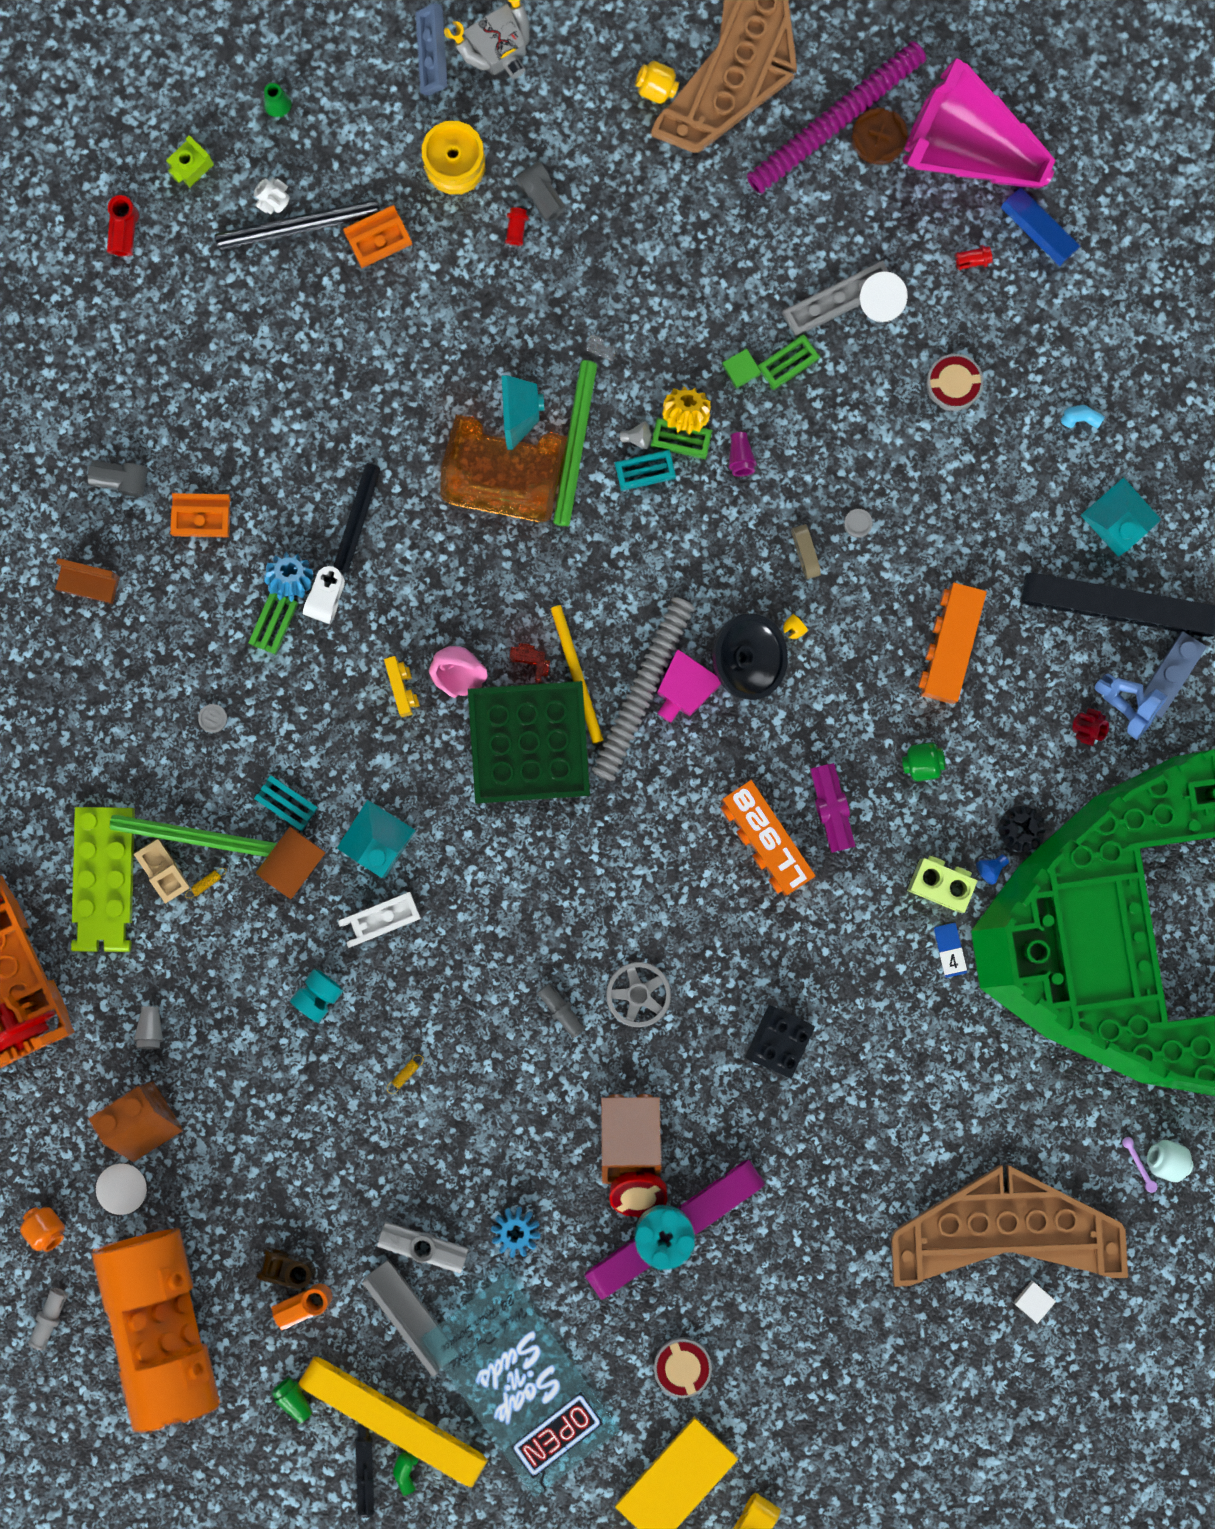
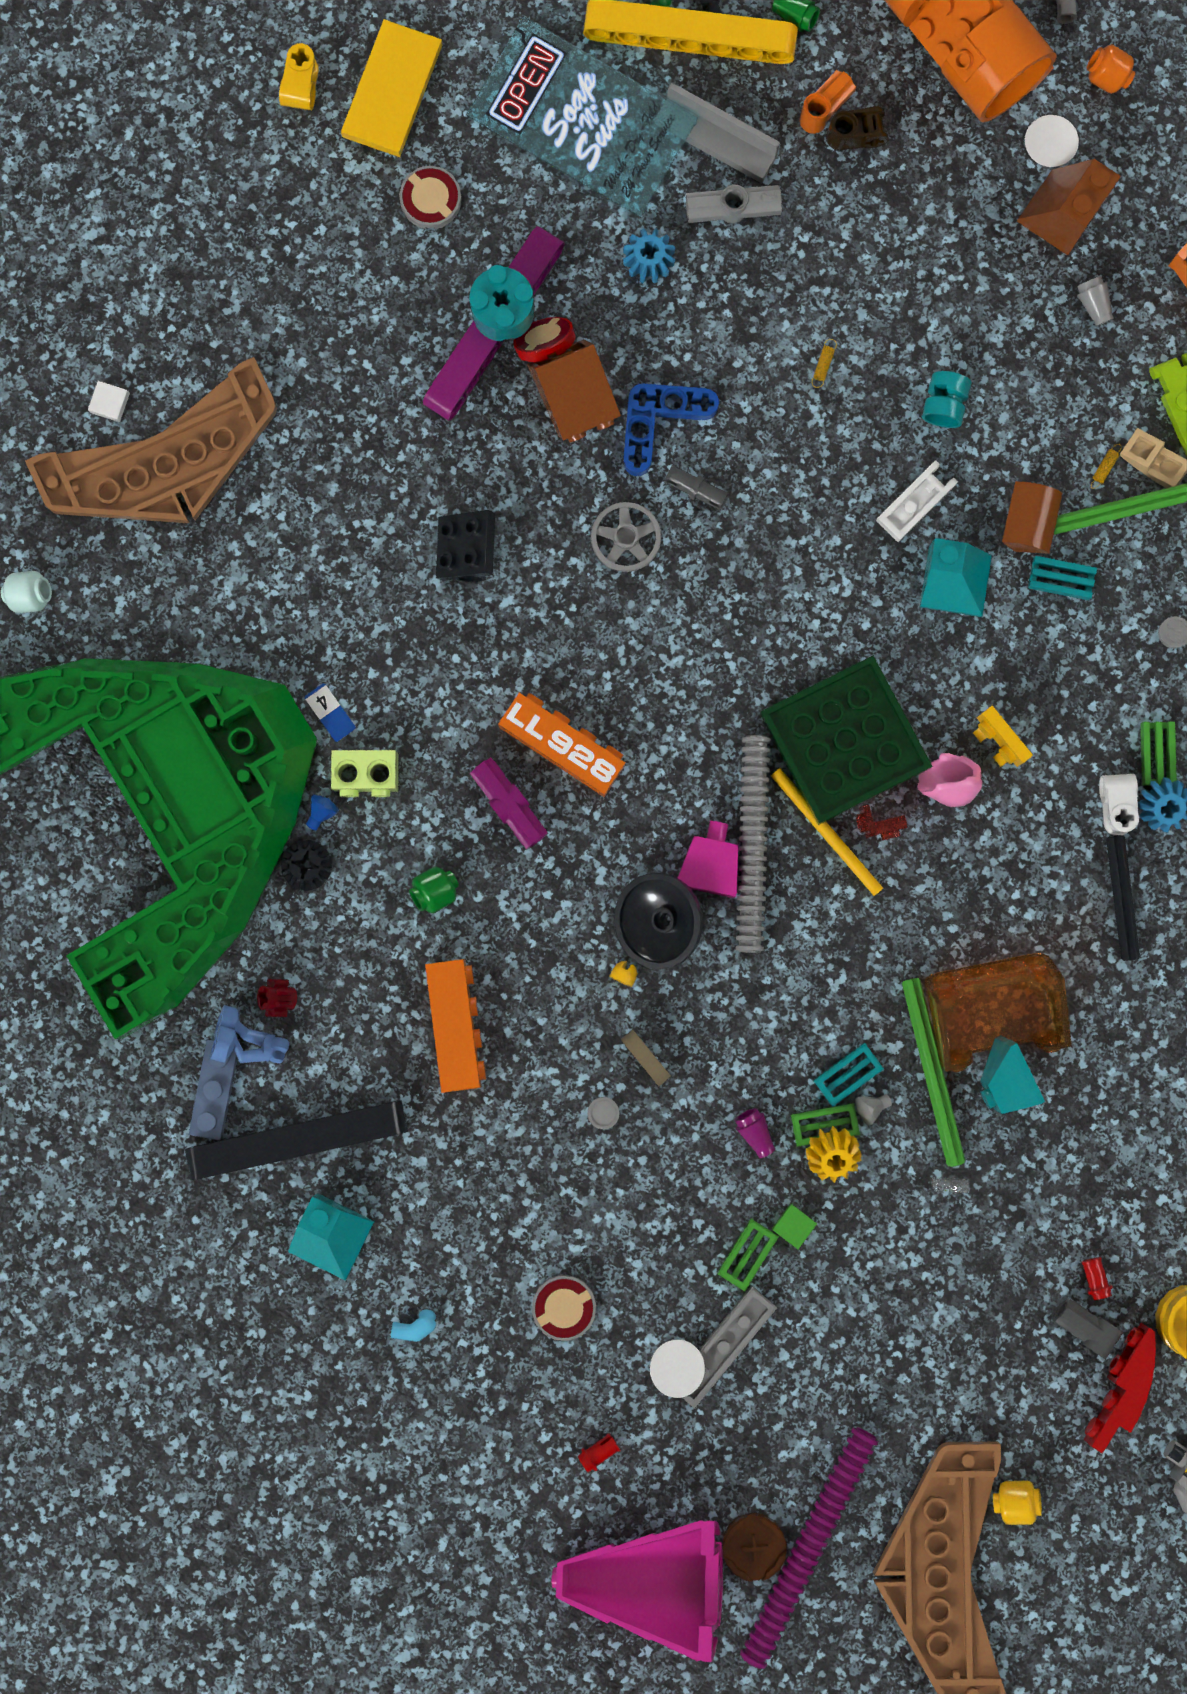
camera: 160 degrees right, 0 degrees up
(524, 139) = (1133, 1376): none -> red slope
(574, 1093) = (647, 414): none -> blue beam
(1040, 226) = (541, 1519): blue slope -> none
(1150, 1185) = (37, 563): lavender hinge -> none

